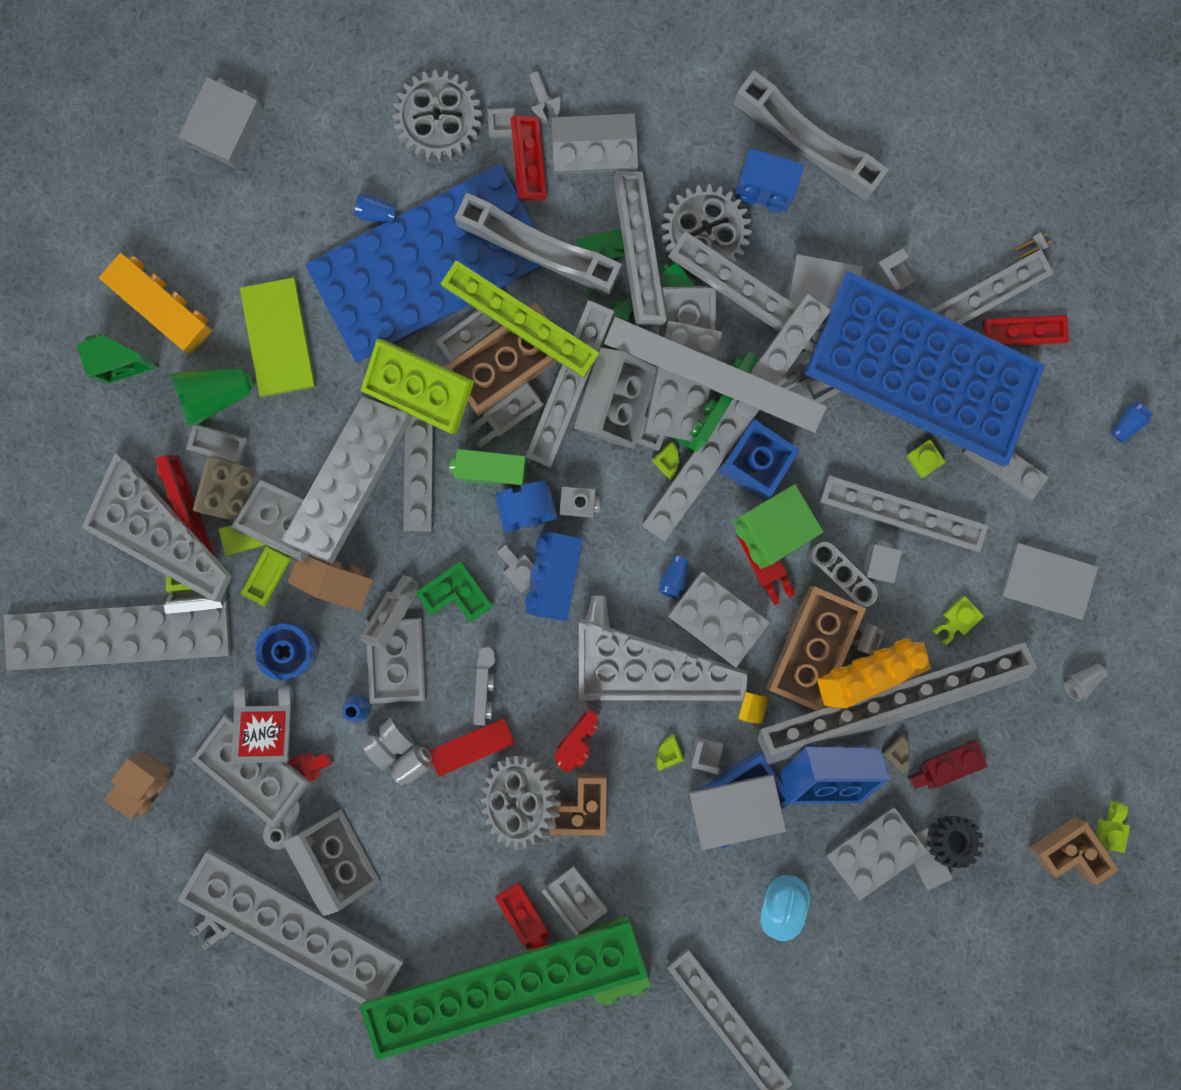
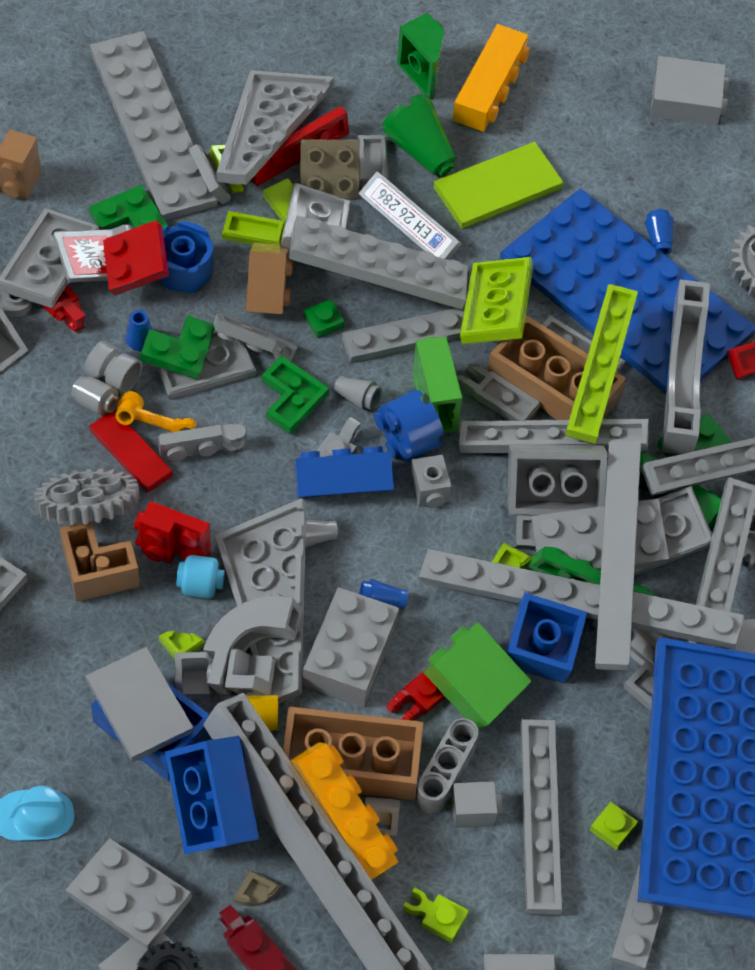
camera: 70 degrees right, 30 degrees down
(209, 682) = (127, 207): none -> green plate
(283, 697) = (135, 257): none -> red plate
(295, 431) = (409, 217): none -> tile
(381, 541) = (323, 318): none -> green plate
(392, 679) = (182, 354): none -> green plate
(436, 738) = (131, 408): none -> light orange brick
(470, 534) = (360, 392): none -> light grey cone
(615, 722) = (200, 577): none -> medium azure head
(681, 685) = (246, 625): none -> light grey arch
(722, 709) = (250, 673): none -> light grey panel

